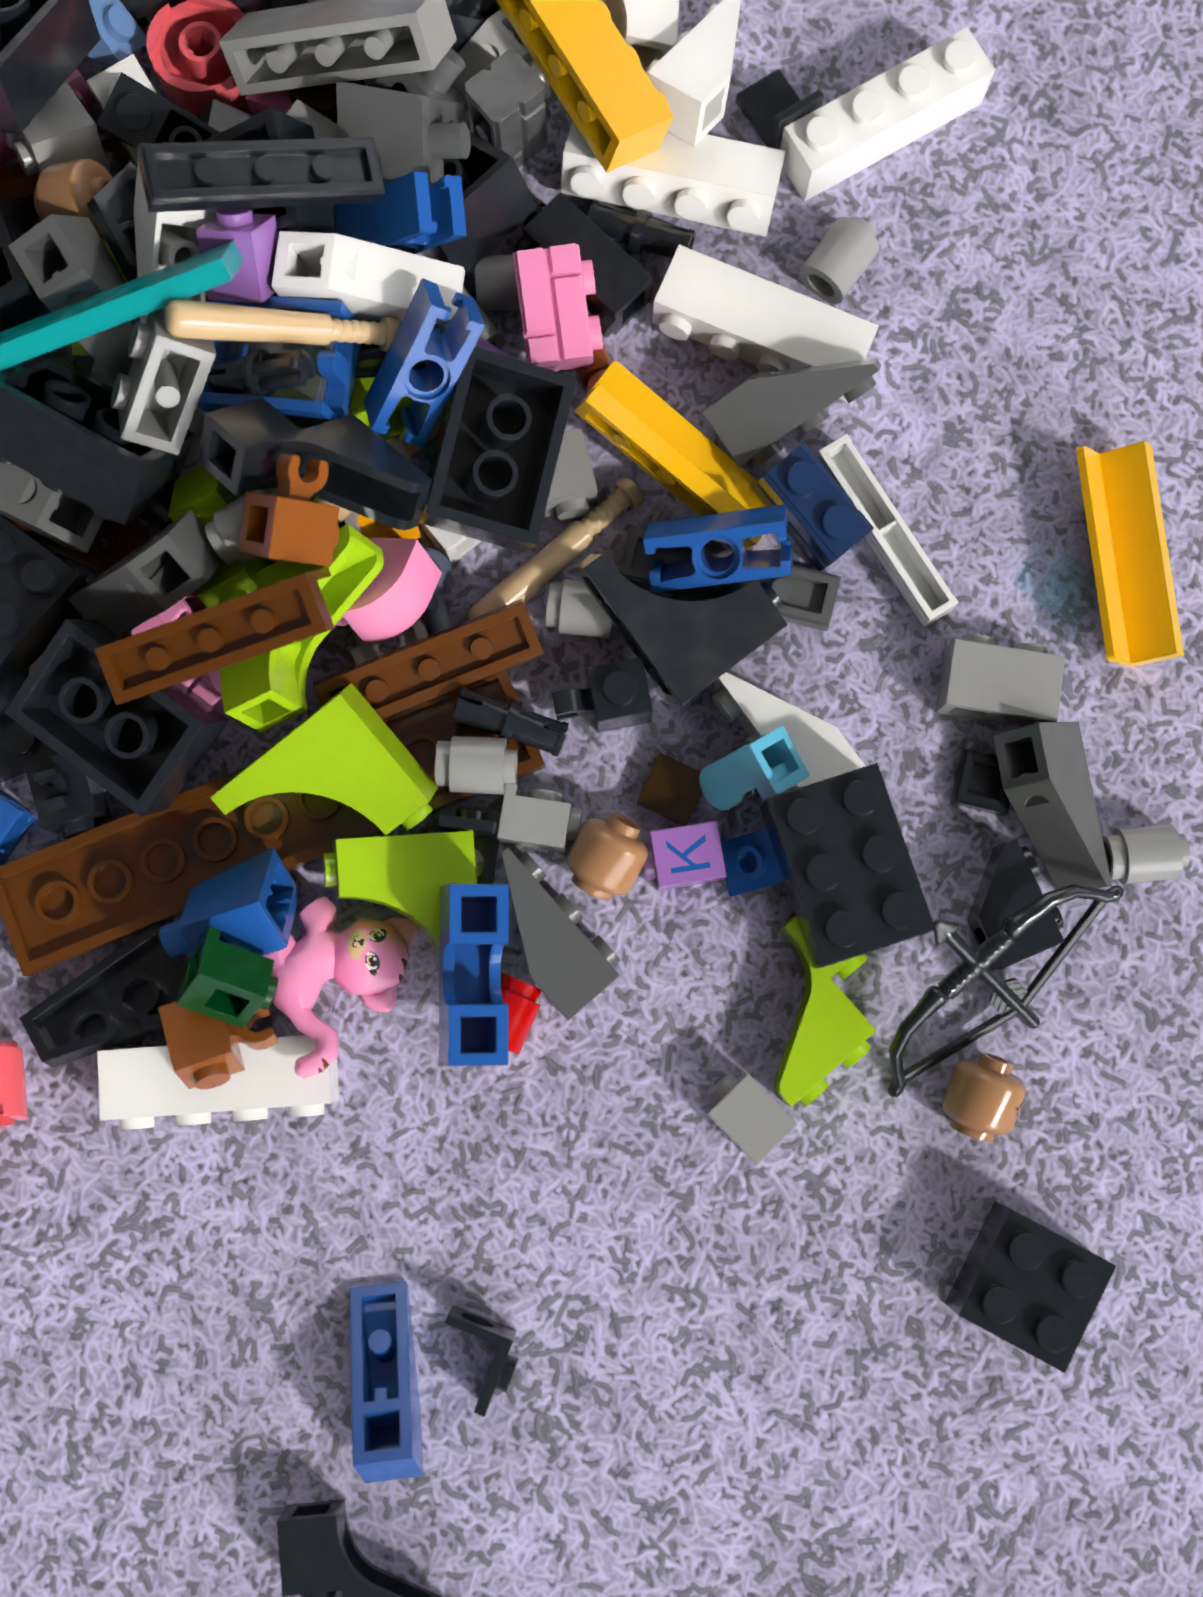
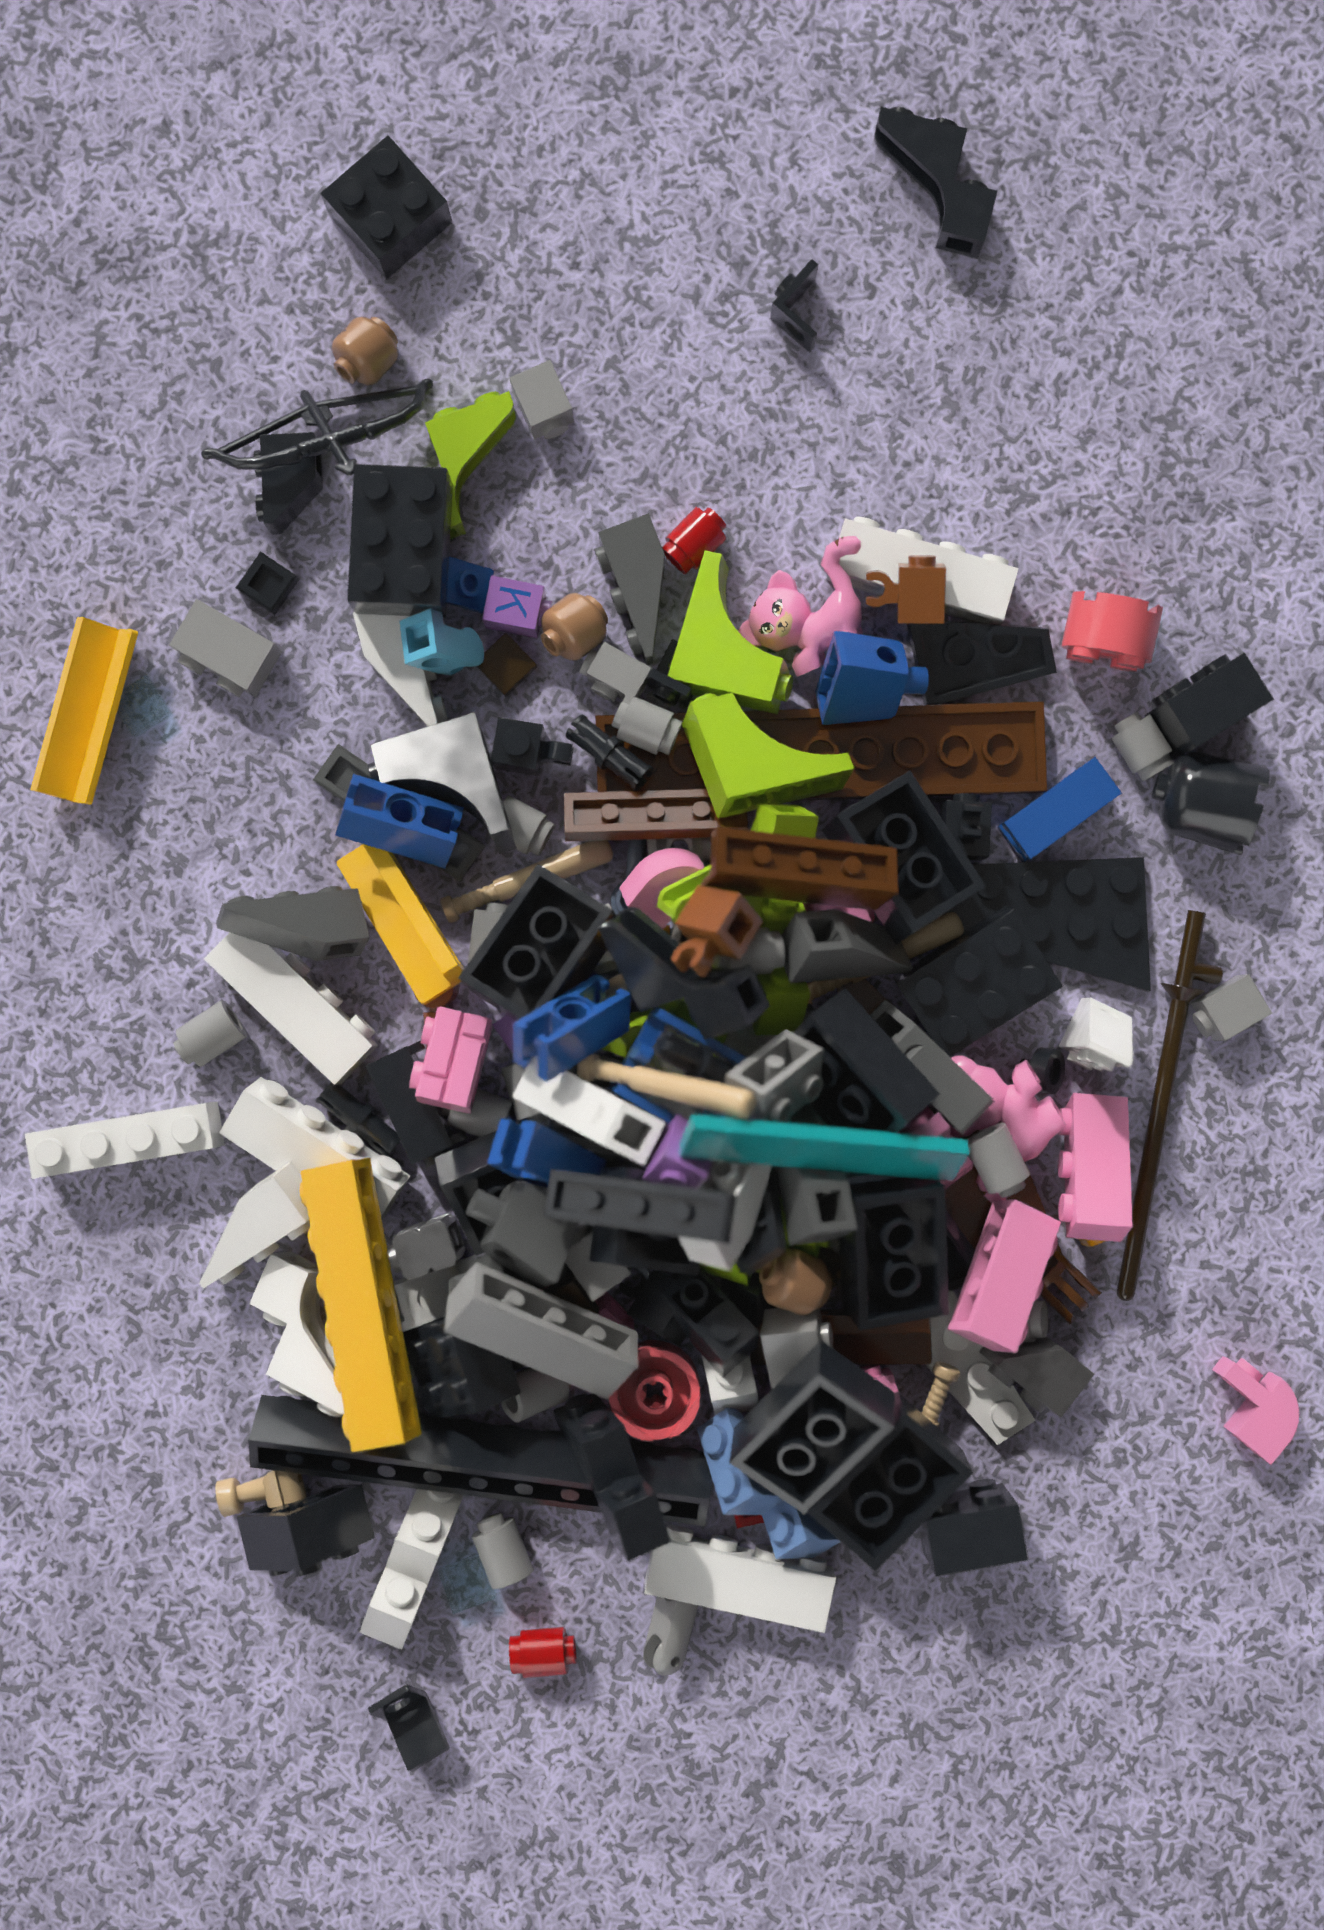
camera: 160 degrees left, 5 degrees up
(226, 981) = (886, 620): dark green brick -> none
(384, 1384) = (876, 314): blue slope -> none
(470, 994) = (716, 538): blue arch -> none
(774, 105) = (209, 1181): black bracket -> none
(817, 507) = (312, 837): dark blue brick -> none
(891, 537) = (264, 801): white piece -> none
(1054, 799) = (222, 545): dark grey slope -> none
(1146, 854) = (171, 482): light grey brick -> none

